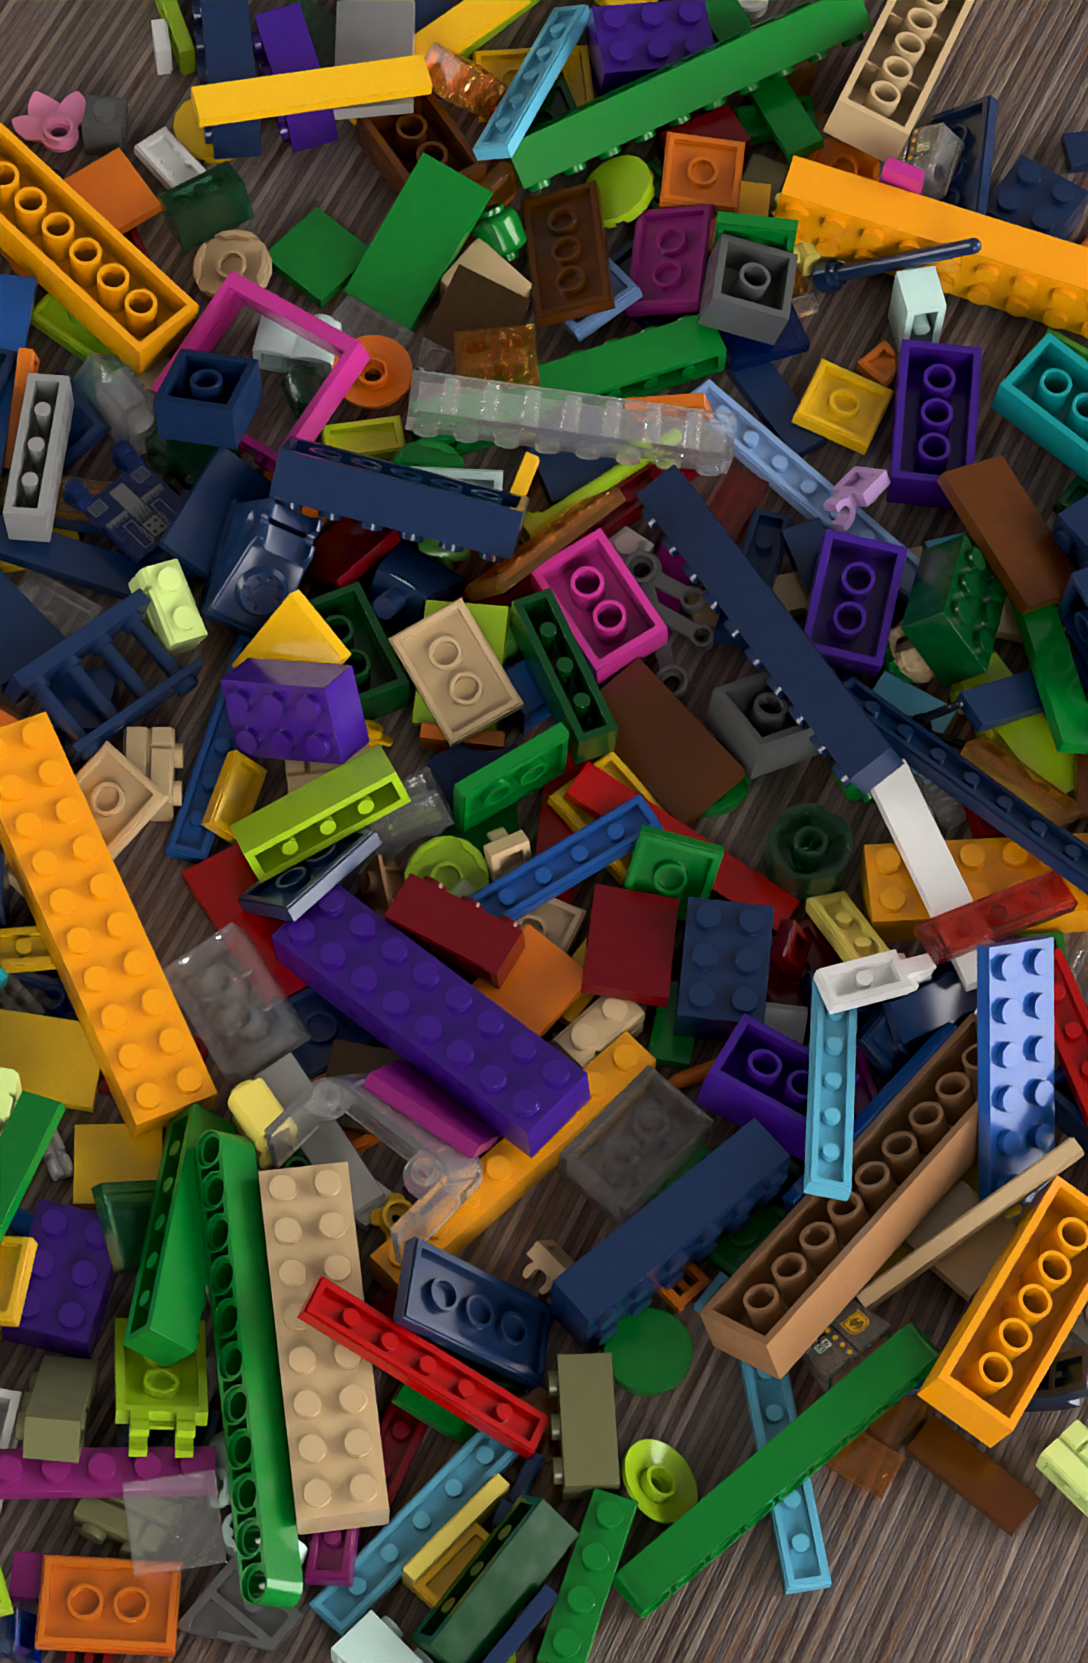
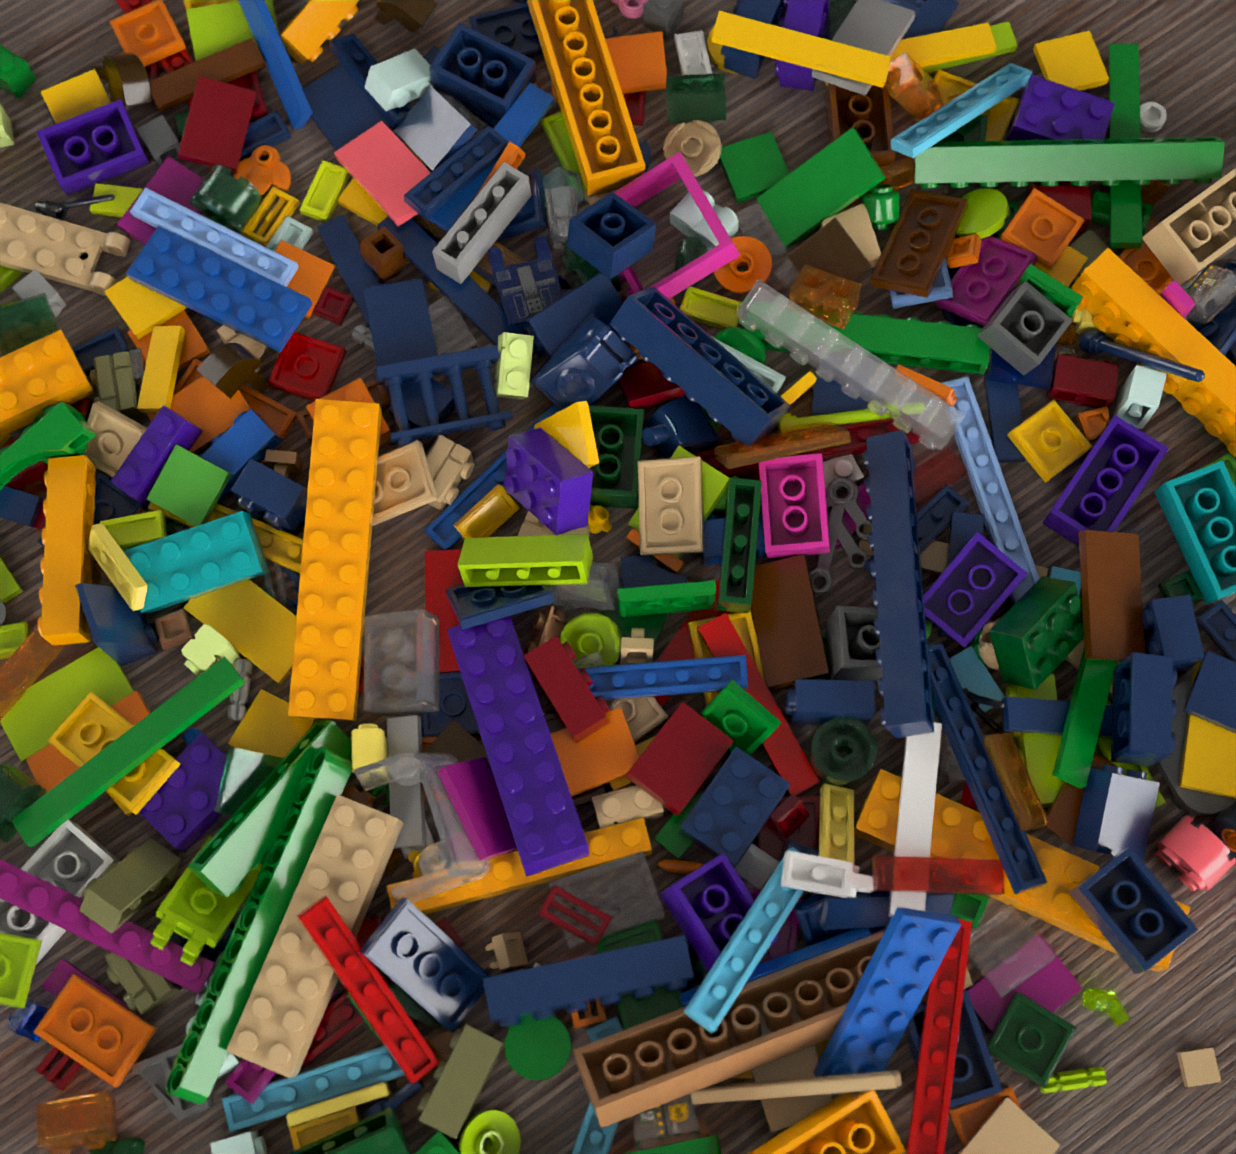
camera: 35 degrees right, 10 degrees up
(174, 1522) = (157, 1002): clear tile -> none
(614, 1187) = (594, 941): none -> dark red tile
(625, 240) = (964, 251): none -> orange tile
(752, 802) = (822, 700): none -> dark blue brick
(844, 323) = (1083, 381): none -> dark red brick
(857, 488) = (1021, 508): lavender plate -> none

